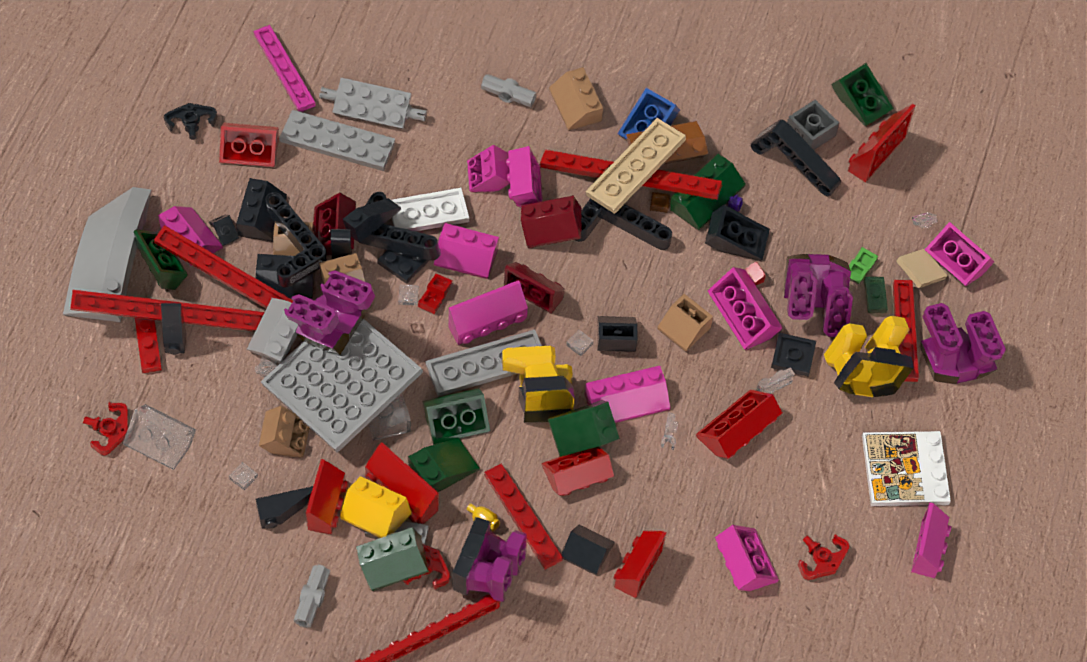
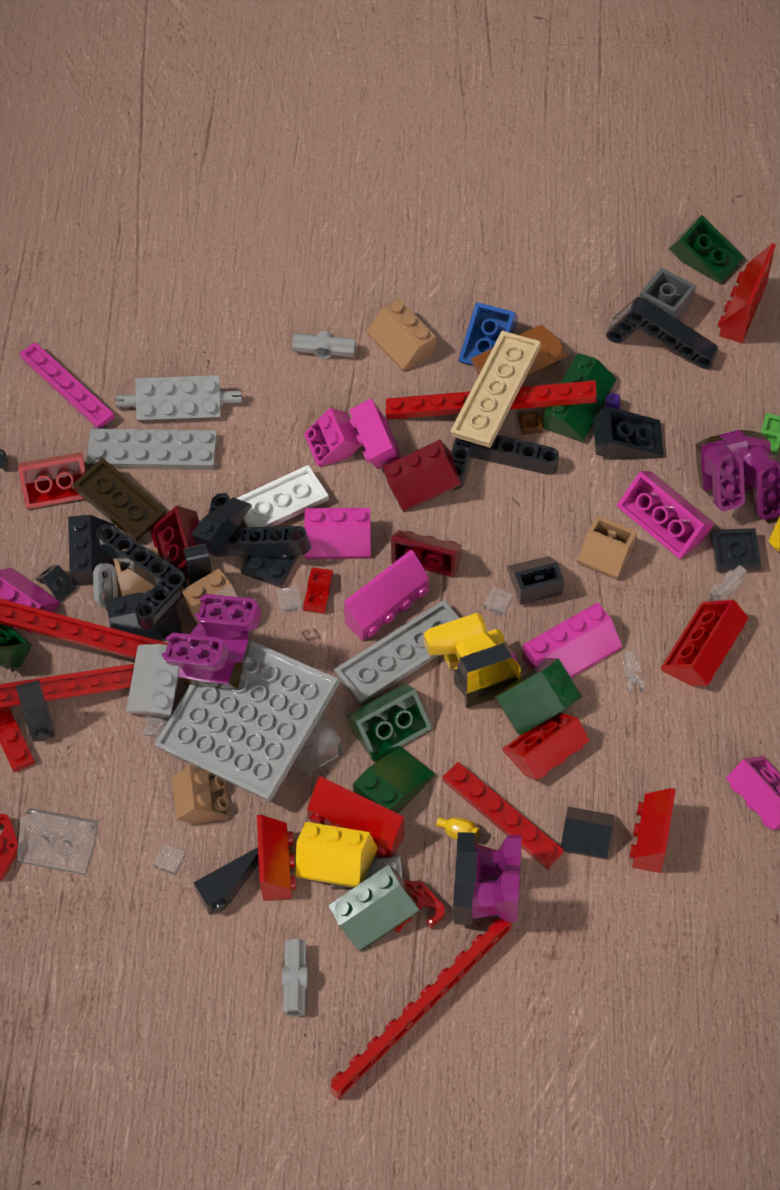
camera: 10 degrees left, 0 degrees up
(263, 242) = (104, 585): none -> light grey plate
(296, 175) = (118, 499): none -> dark brown plate
(756, 273) = (663, 471): slope -> none

